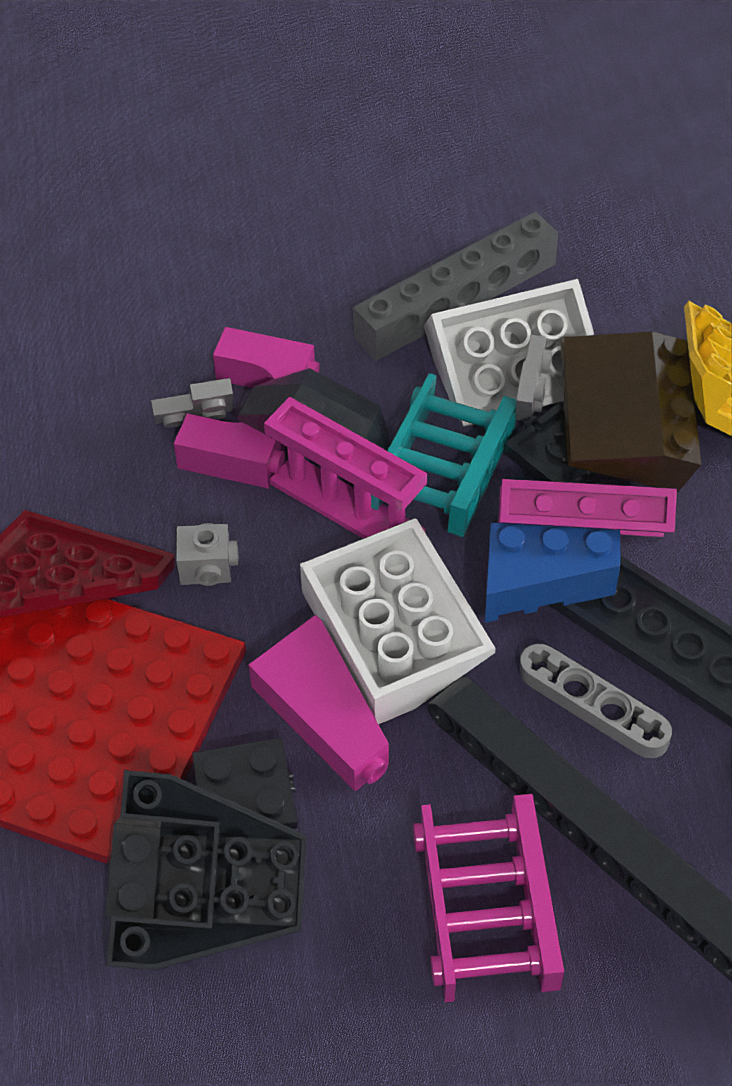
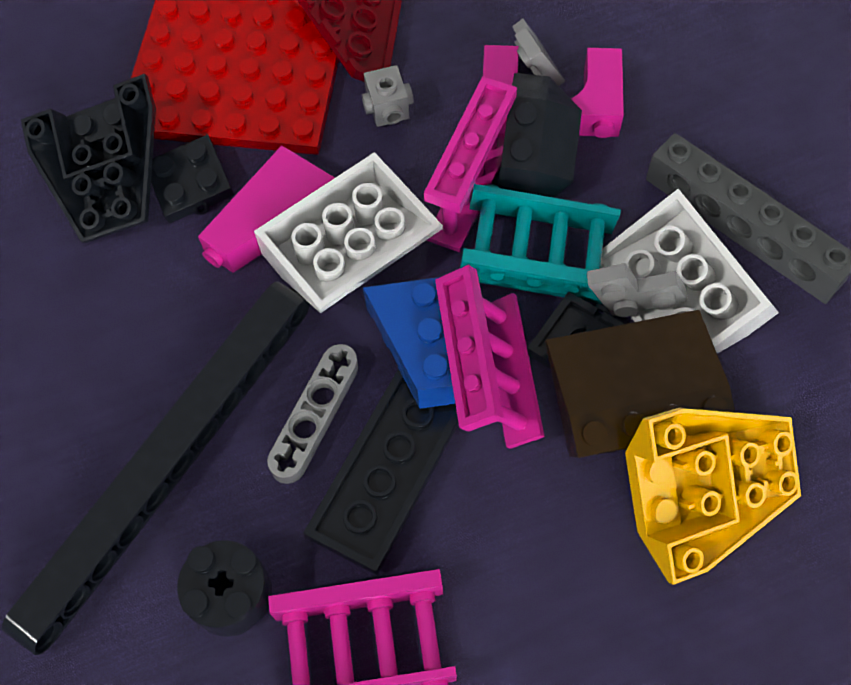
camera: 80 degrees right, 10 degrees up
(532, 913) = (123, 391): dark pink fence -> none

